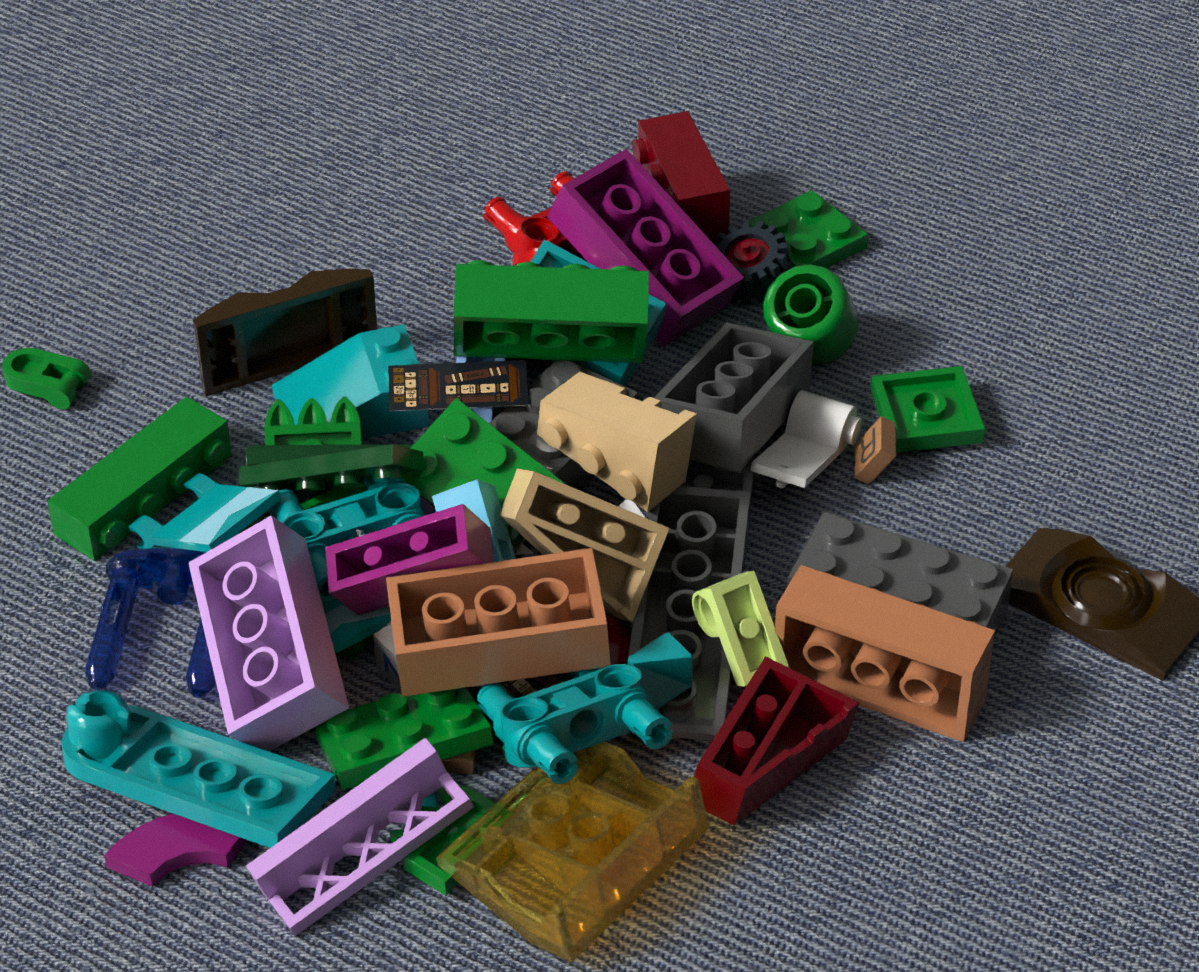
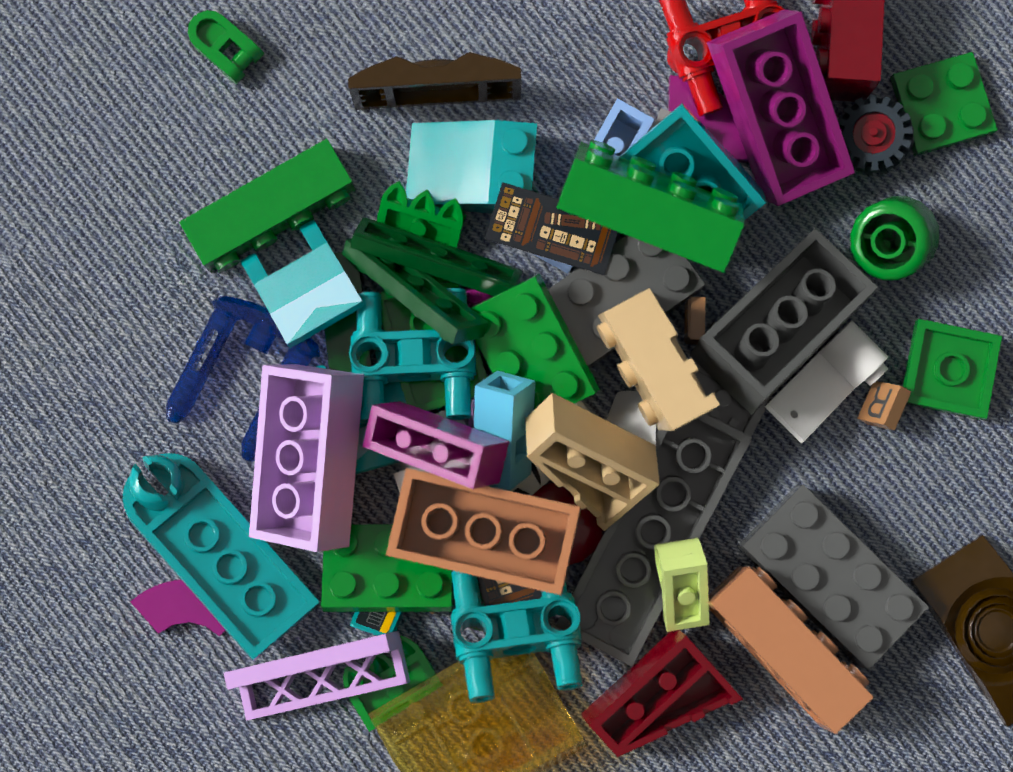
camera: 20 degrees right, 40 degrees up
(664, 668) = (601, 602): teal slope -> none

